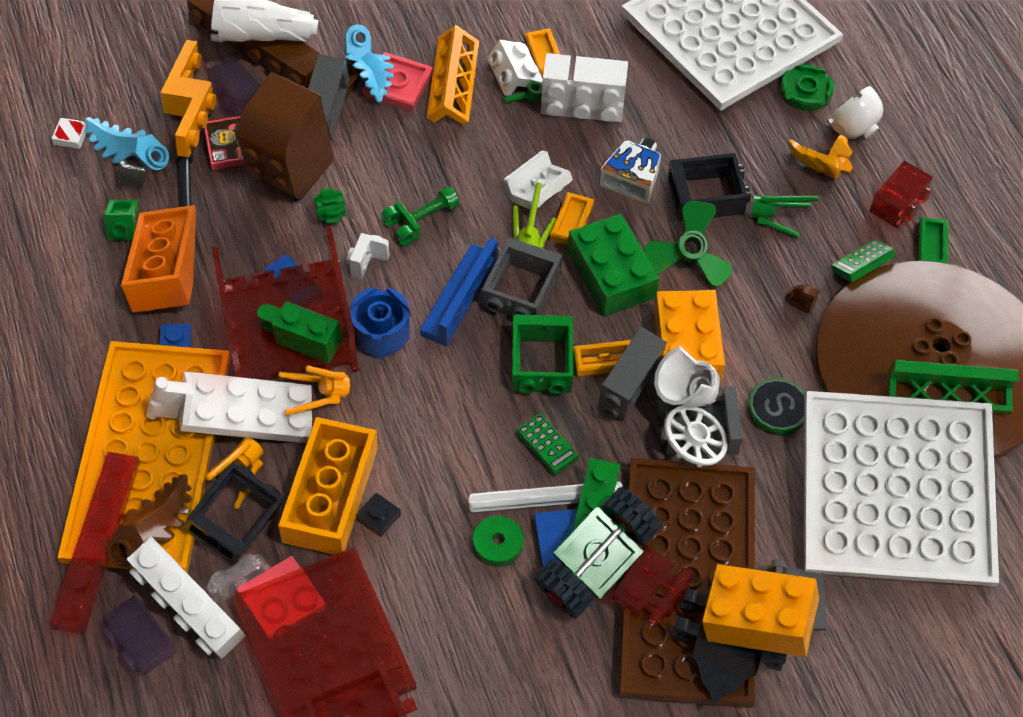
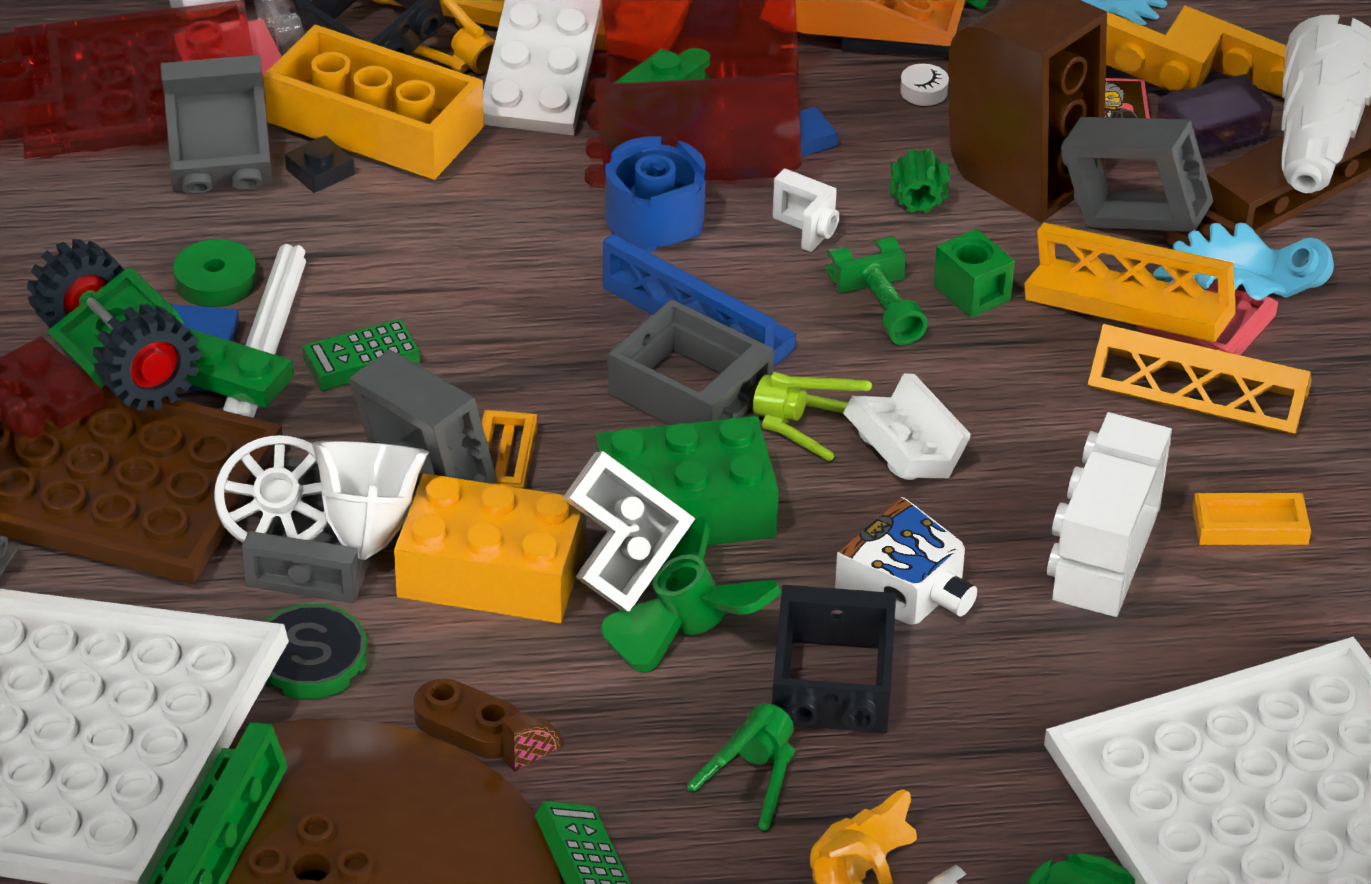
camera: 105 degrees right, 15 degrees down
(225, 223) = (924, 84): none -> white tile
(331, 384) = (558, 138): light orange plant -> none
(382, 565) = (216, 124): none -> dark grey panel
(401, 173) = (973, 273): none -> green brick
(402, 103) = (1134, 293): none -> light orange fence
(513, 66) = (1216, 460): white bracket -> none
(555, 330) = (537, 338): green window -> none
(572, 215) = (823, 475): light orange tile -> none
(682, 264) = (639, 527): none -> white brick
(796, 327) = (462, 716): none -> reddish brown plate

